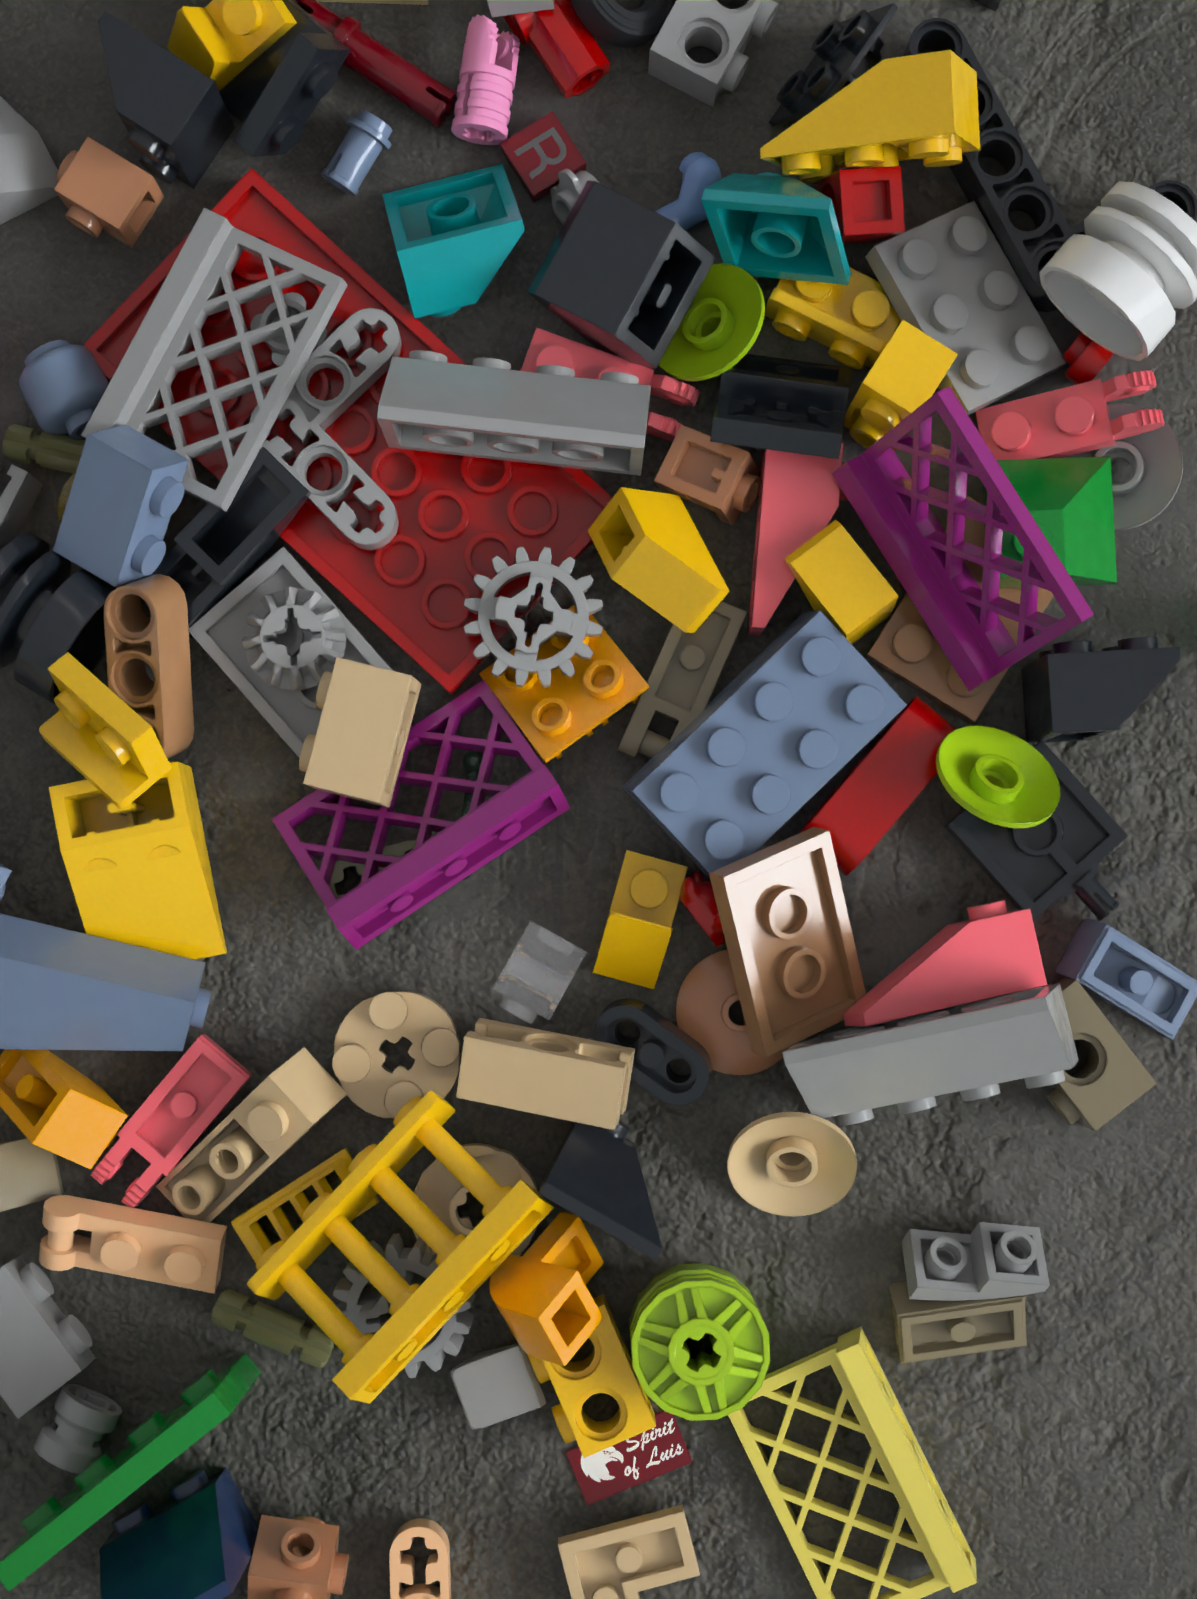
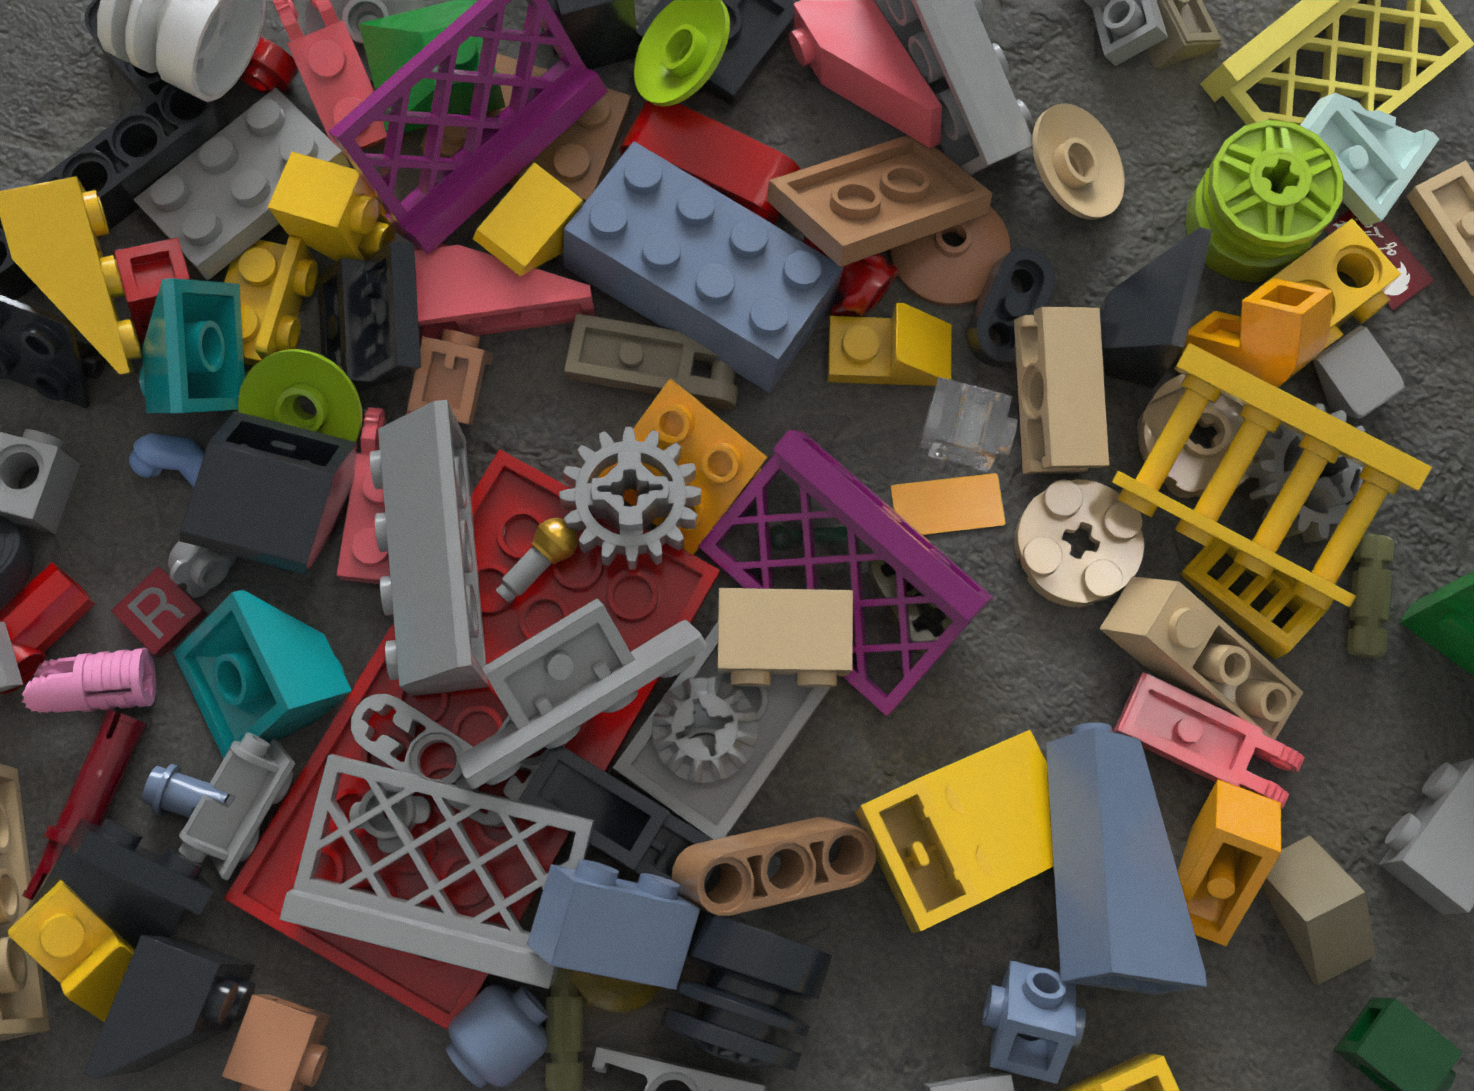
camera: 100 degrees left, 10 degrees down
(102, 735) = (856, 881): yellow bracket -> none
(132, 1243) = (1336, 750): light nougat plate -> none
(350, 212) = (255, 778): none -> light grey hinge
(357, 513) = (567, 679): none -> light grey bracket
(470, 937) = (950, 503): none -> light orange sticker
(505, 529) = (551, 544): none -> piece
(659, 556) = (543, 394): yellow slope -> none
(731, 1468) = (1371, 152): none -> light aqua wing

